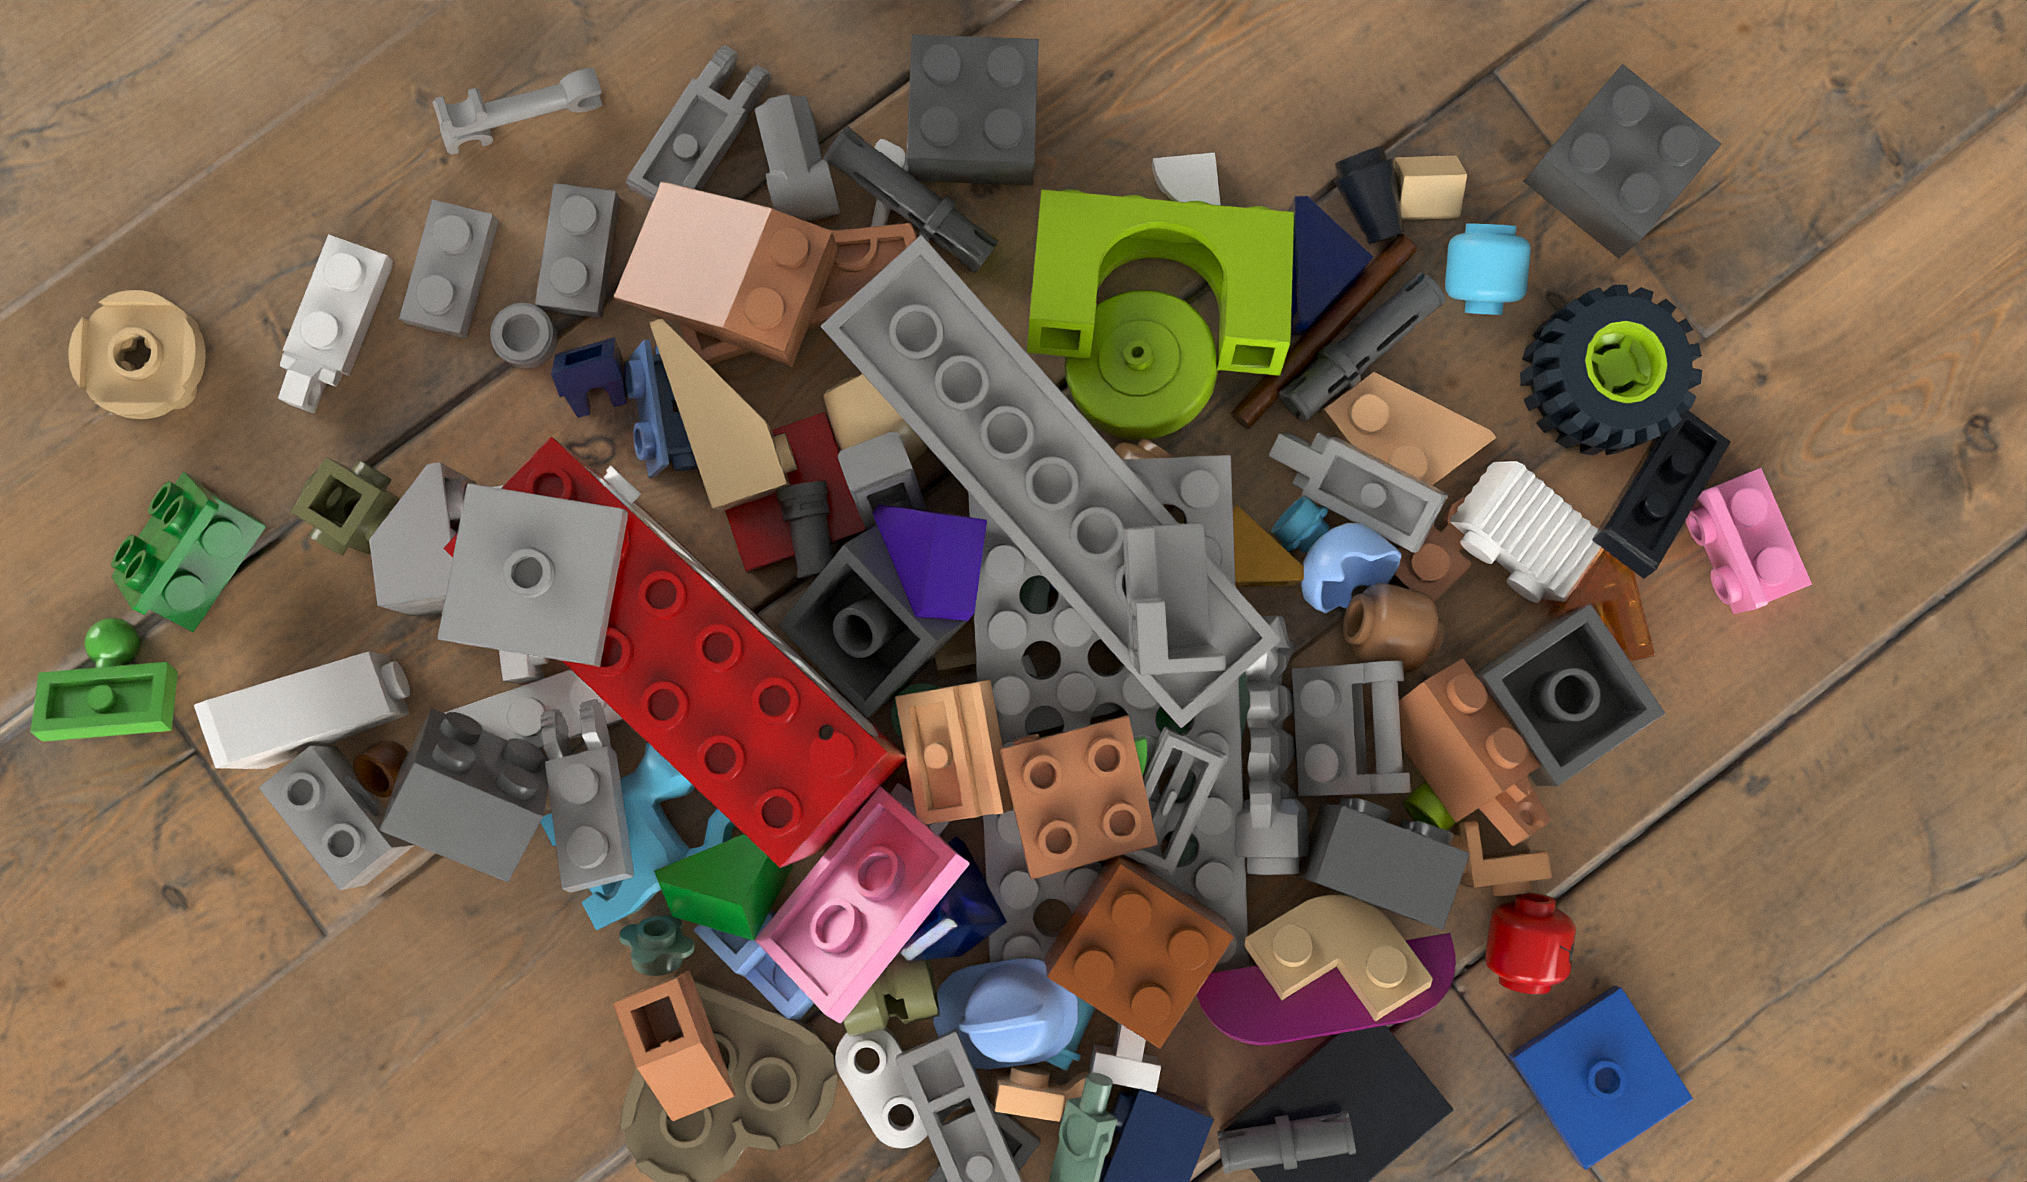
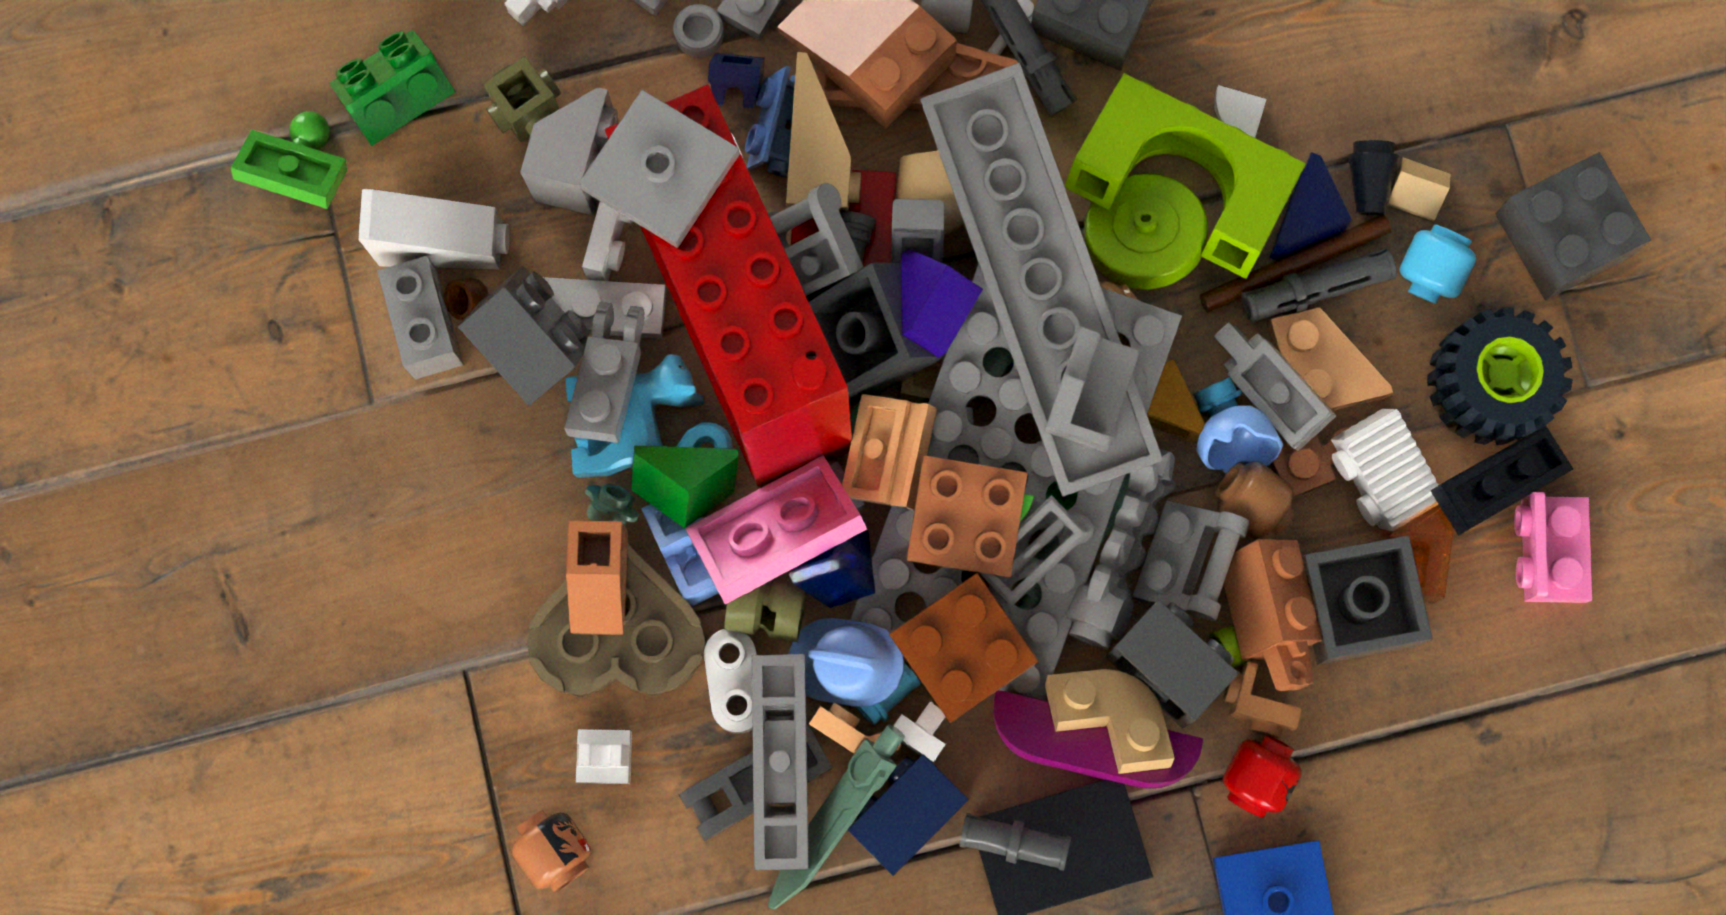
camera: 30 degrees right, 5 degrees down
(776, 561) = (827, 253): none -> light grey plate

